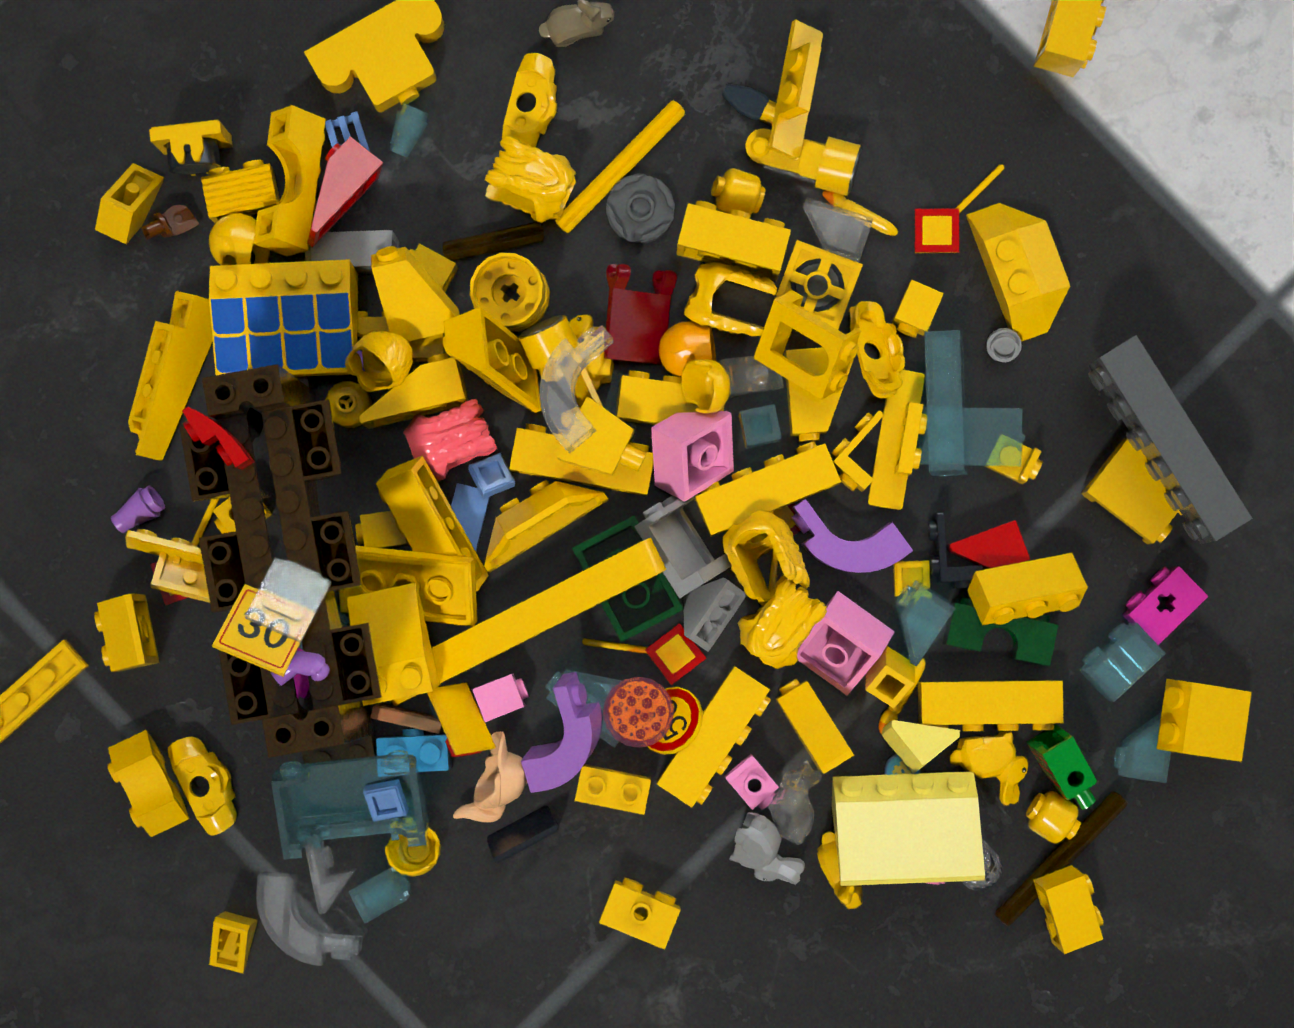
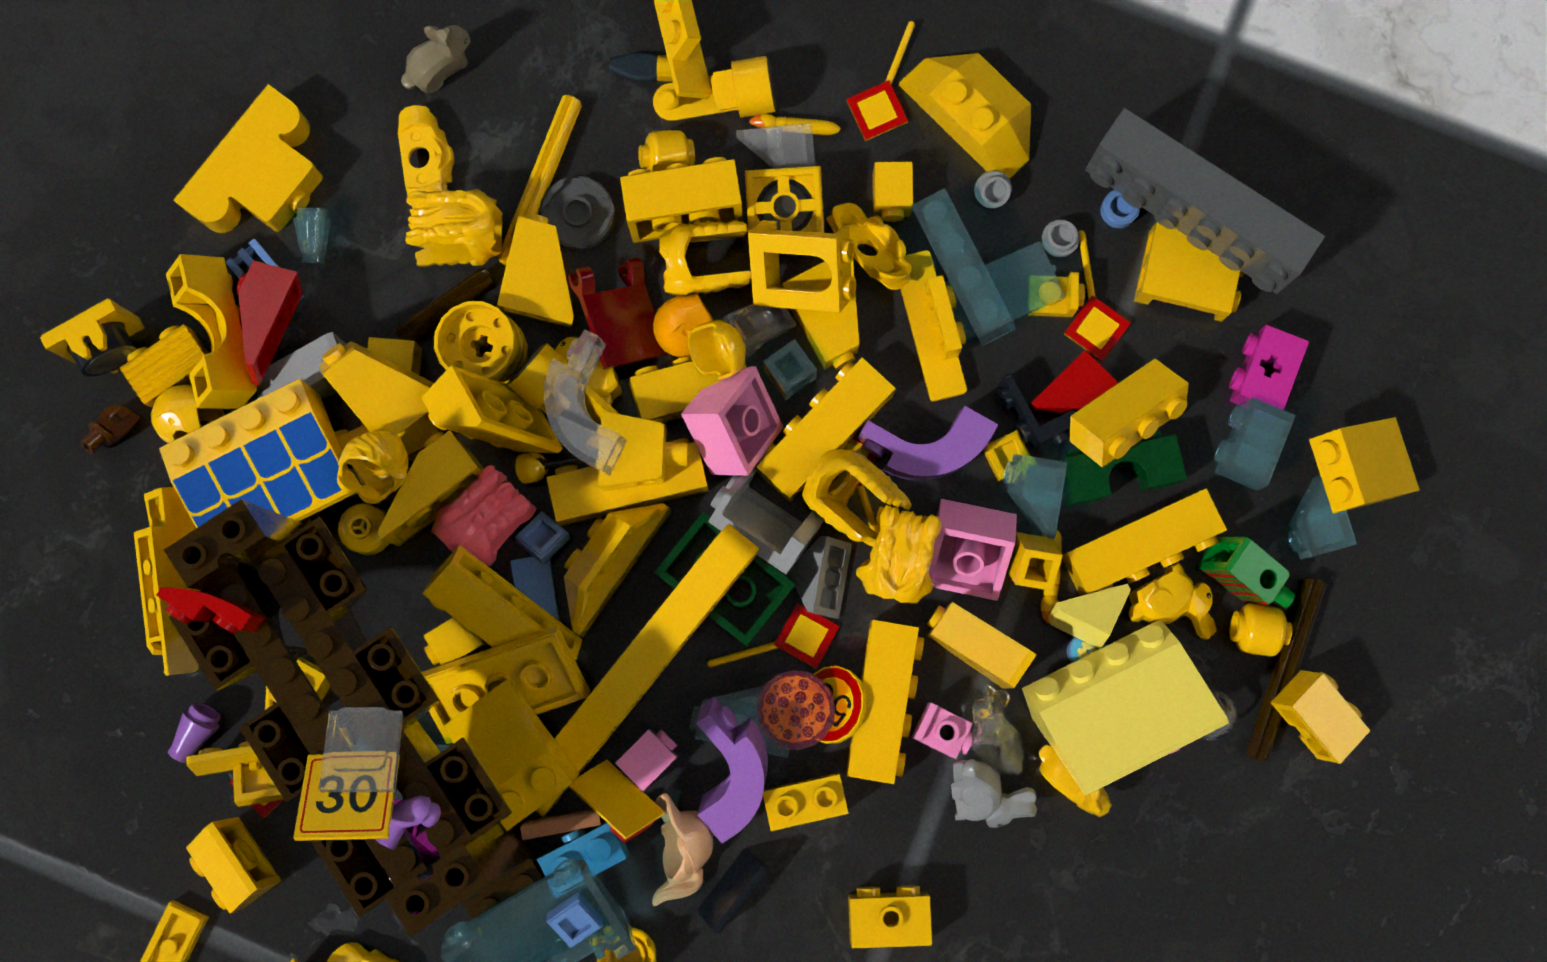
camera: 25 degrees left, 5 degrees down
(128, 203) = (56, 427): yellow slope -> none
(509, 413) = (534, 466): none -> yellow hinge
(582, 249) = (535, 274): none -> yellow slope
(851, 474) = (901, 376): yellow bracket -> none
(1039, 500) = (1096, 325): none -> piece
(1042, 412) = (1060, 238): none -> light grey plate
(1099, 411) = (1117, 211): none -> medium blue tile

